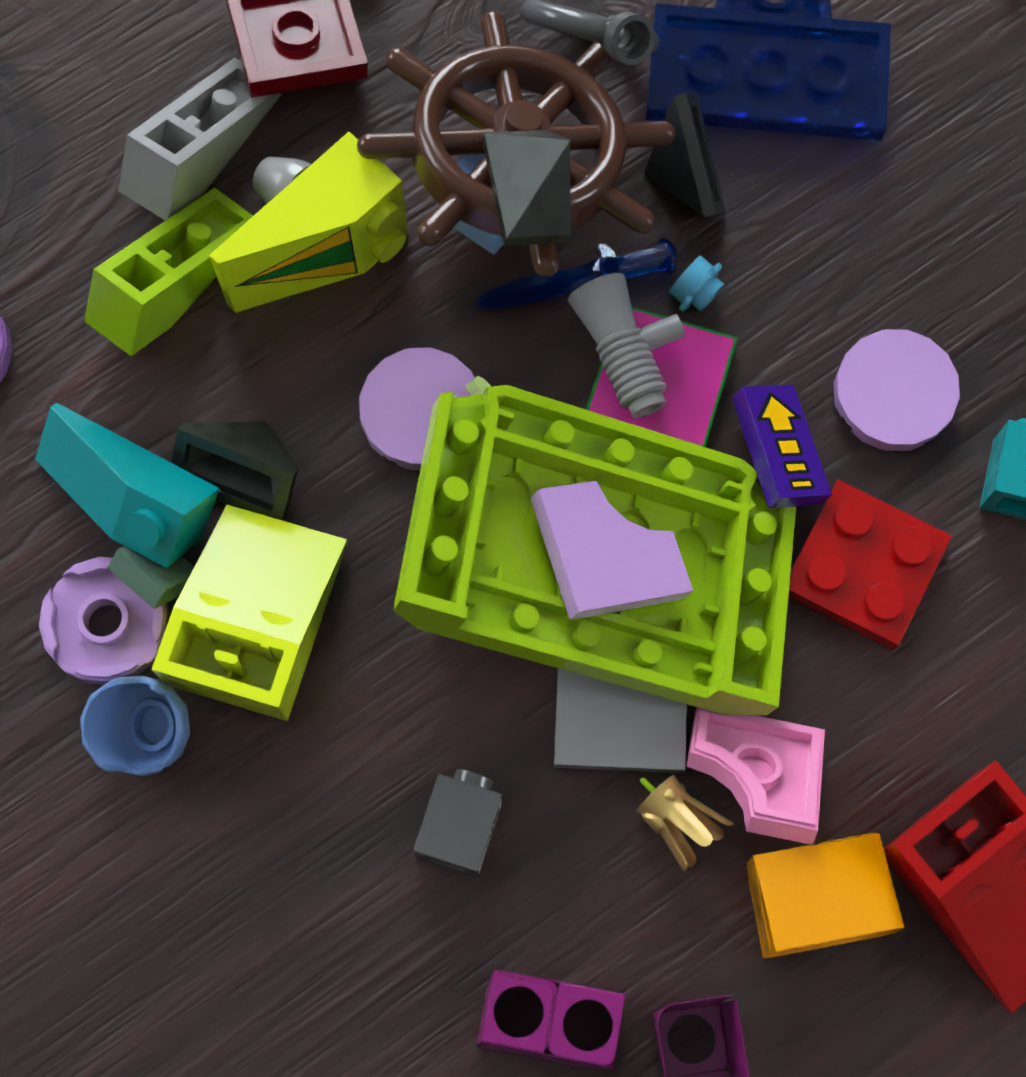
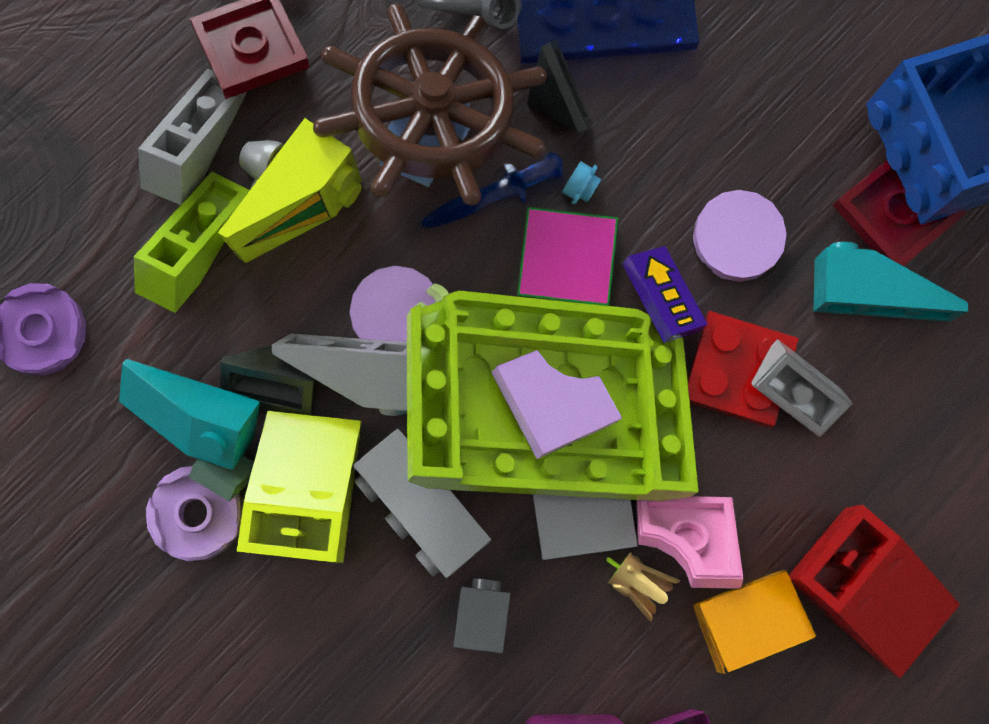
camera: 10 degrees left, 5 degrees up
(135, 726) = (232, 590): medium blue hair -> none
(357, 470) = (360, 369): none -> light grey slope
(405, 666) = (430, 516): none -> light grey brick
(530, 185) = (449, 138): pearl dark grey slope -> none
(623, 347) = (538, 242): light grey piece -> none
(941, 602) = (800, 389): none -> light grey slope

